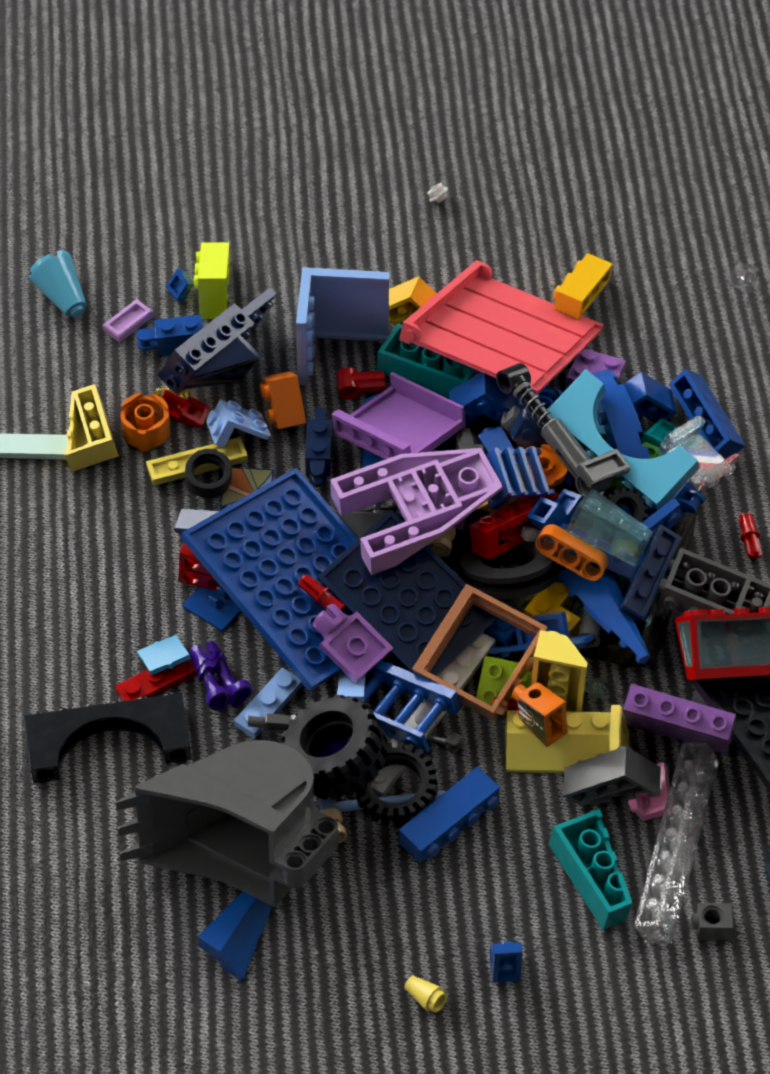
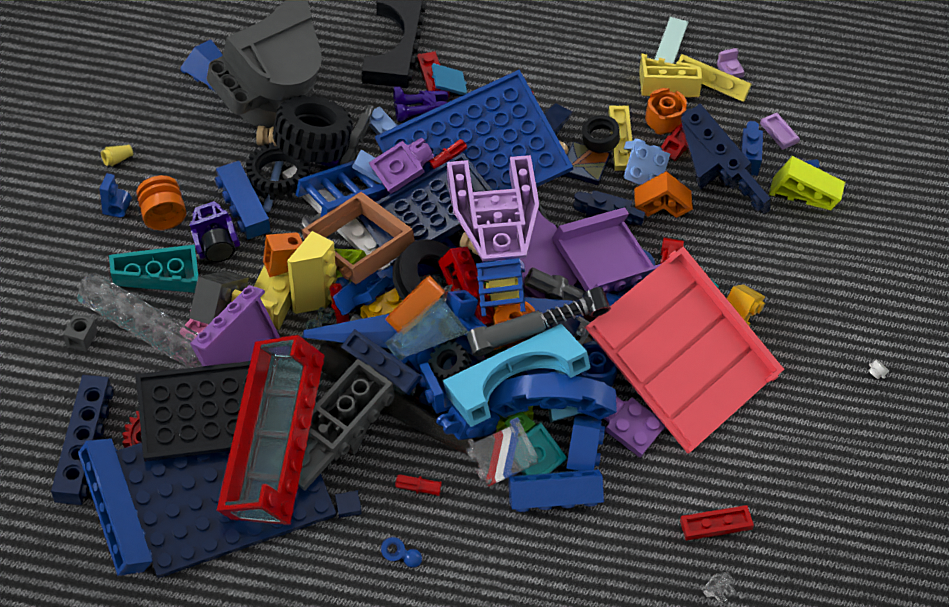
camera: 105 degrees right, 0 degrees up
(38, 381) = (729, 64): none -> lavender bracket
(60, 282) = (821, 89): medium azure cone -> none
(71, 379) = (720, 80): none -> light yellow plate
(339, 307) = (722, 213): light blue bracket -> none
(496, 896) = (161, 202): none -> orange wheel
(531, 819) = (216, 242): none -> piece
(582, 286) = (734, 442): yellow brick -> none
(603, 468) = (483, 341): dark grey tile -> none
(676, 290) = (716, 522): none -> red plate

